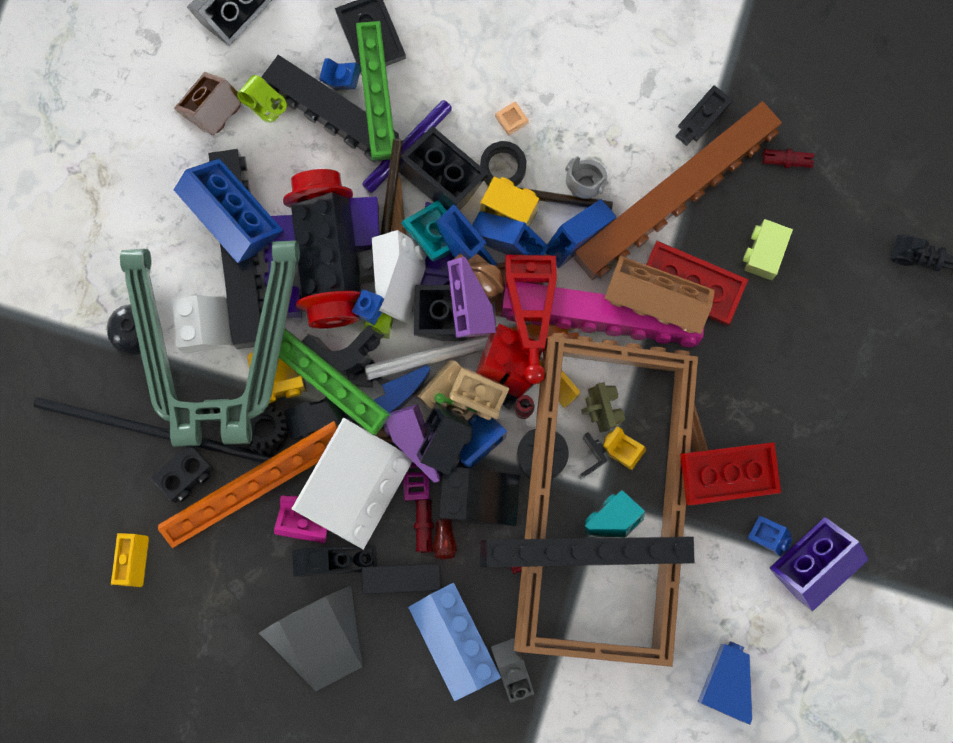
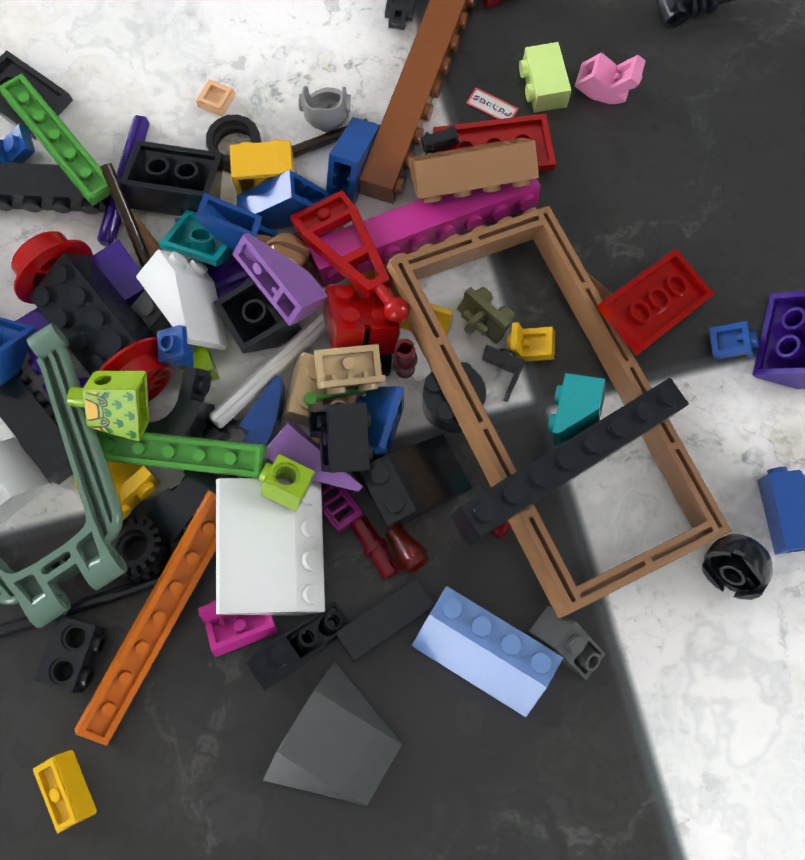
camera: 30 degrees left, 5 degrees down
(306, 324) = (114, 402): none -> lime torso
(384, 459) = (286, 495): none -> lime brick
(653, 255) = (439, 140): none -> black pin
(664, 692) = (739, 565): none -> black cylinder
(715, 246) = (491, 105): none -> white sticker
(813, 281) = (608, 82): none -> bright pink brick

